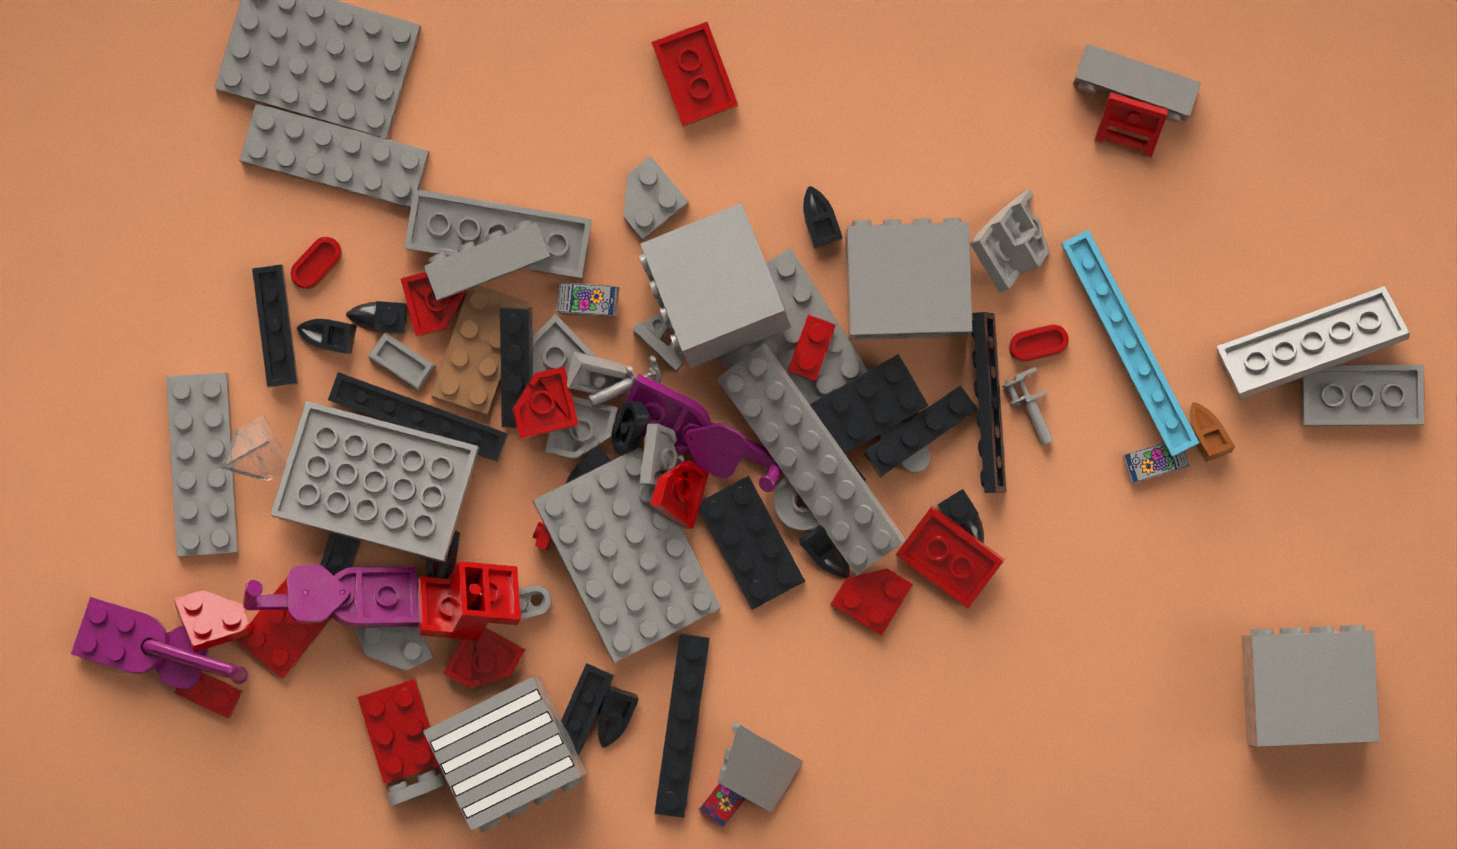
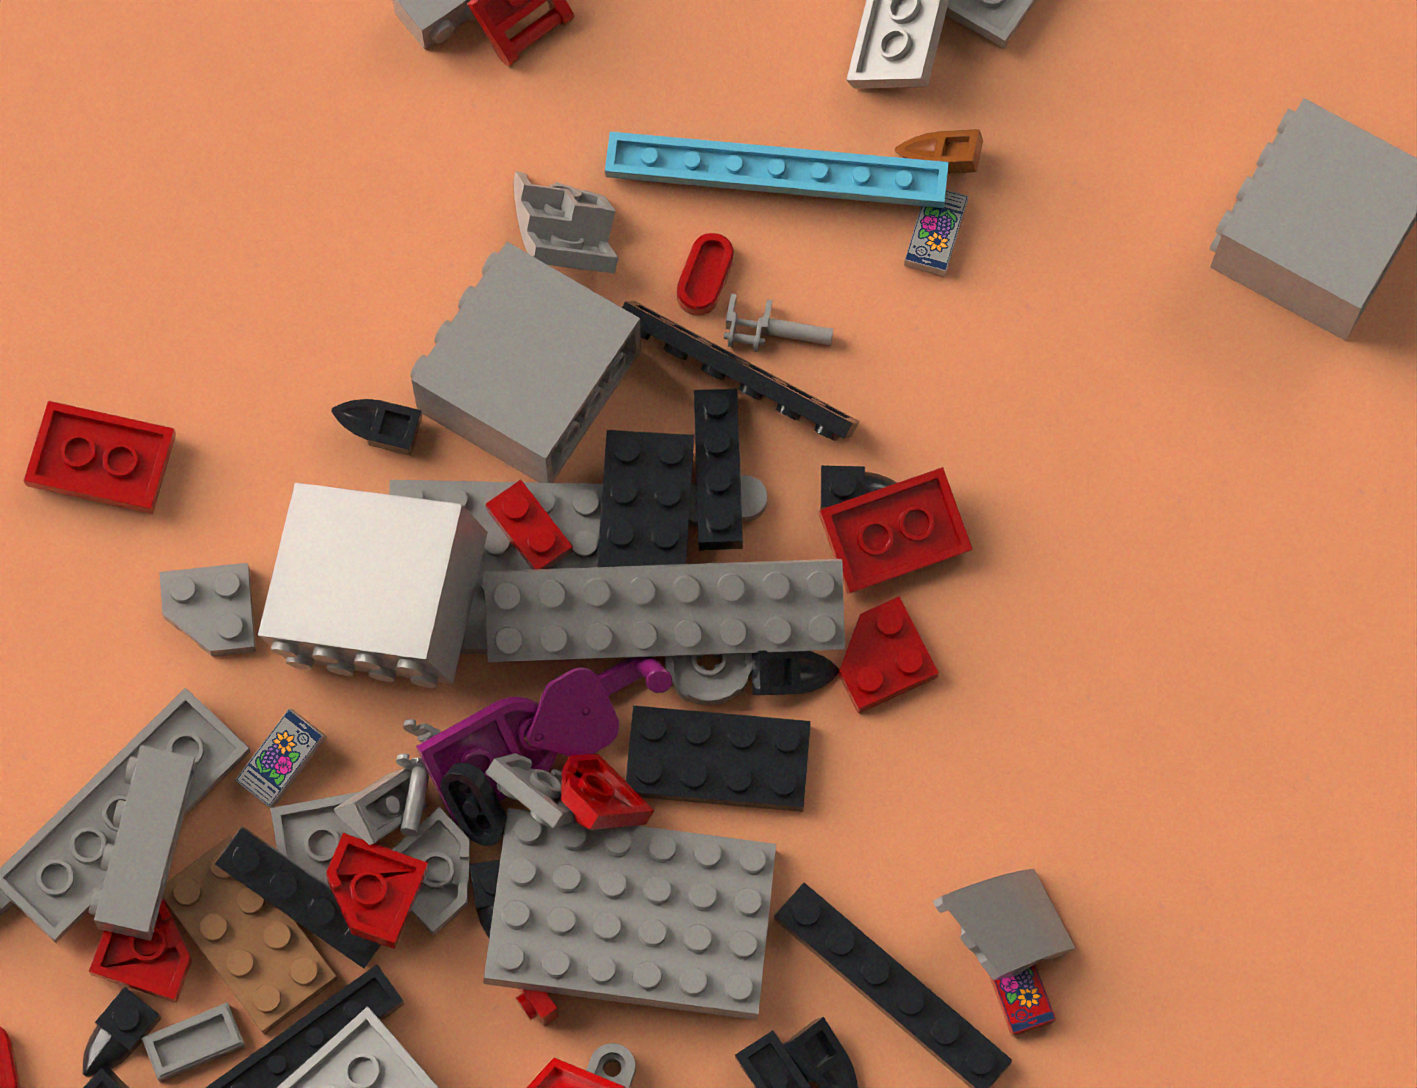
camera: 55 degrees left, 15 degrees down
(651, 333) = (379, 711): light grey hinge -> none

